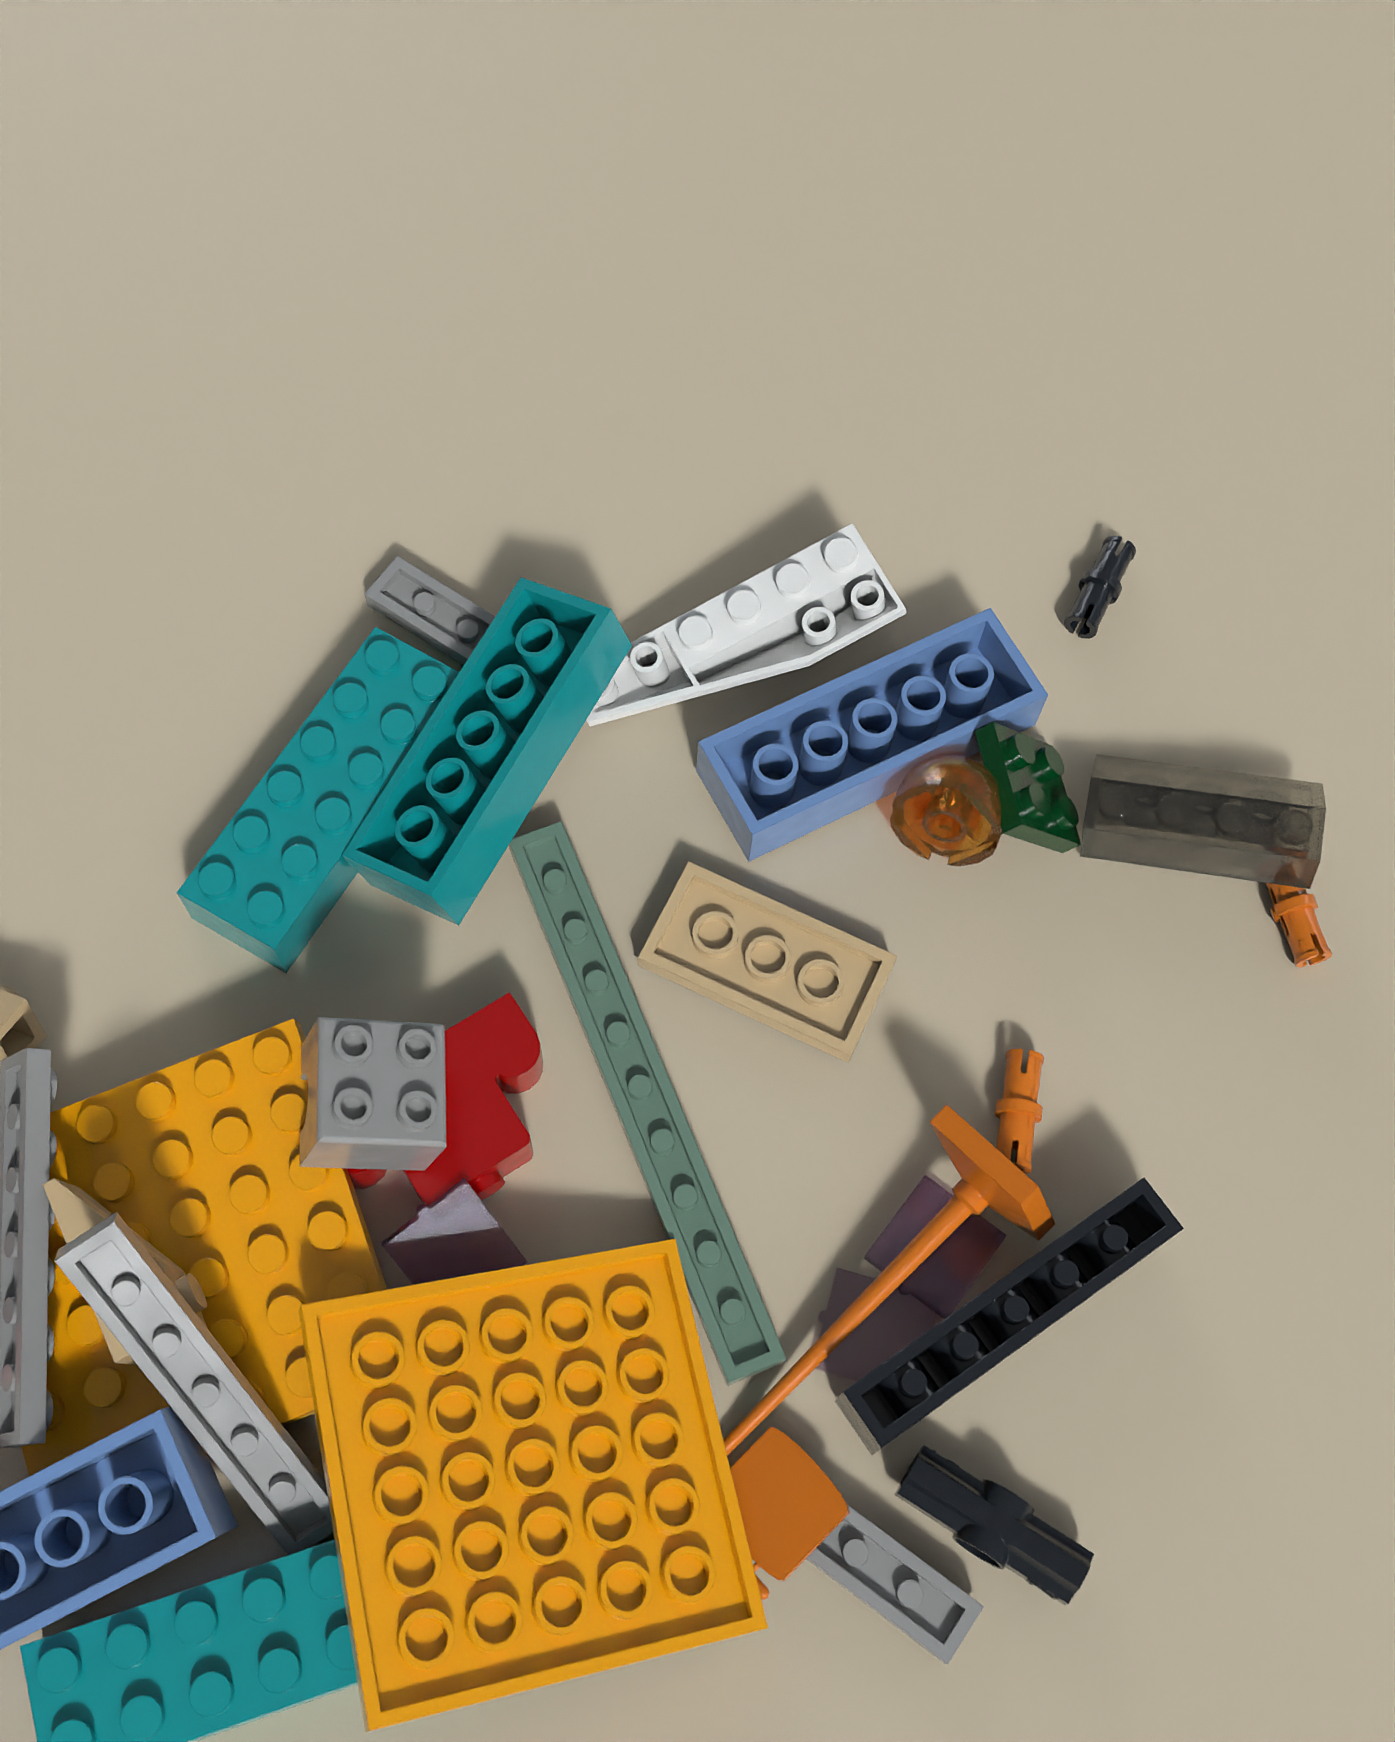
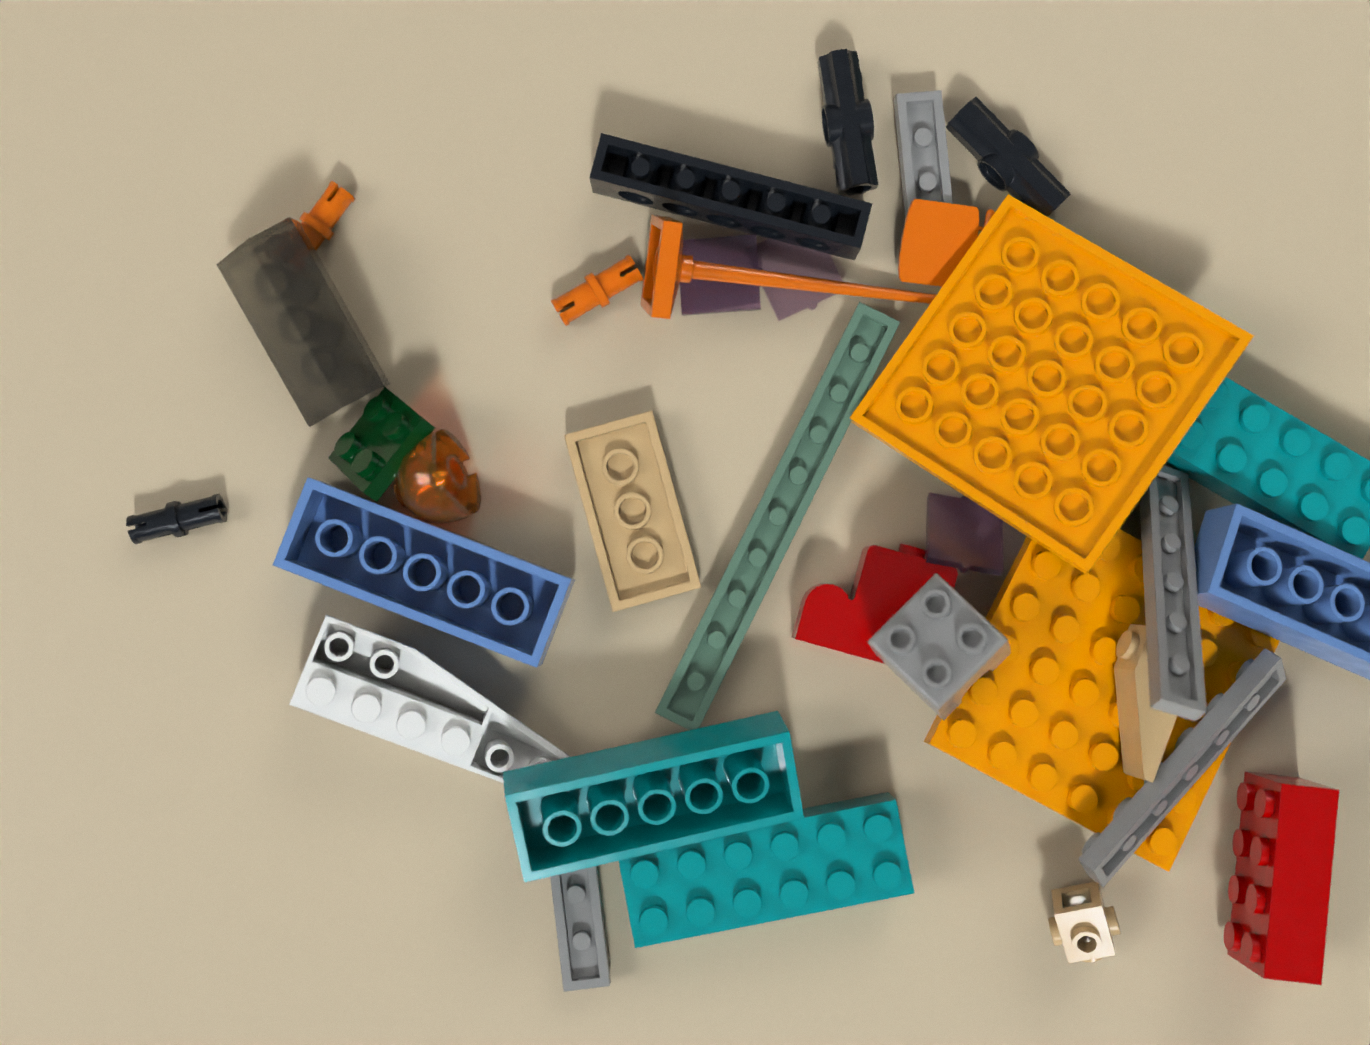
camera: 130 degrees left, 20 degrees up
(806, 1673) = (1007, 158): none -> black piece

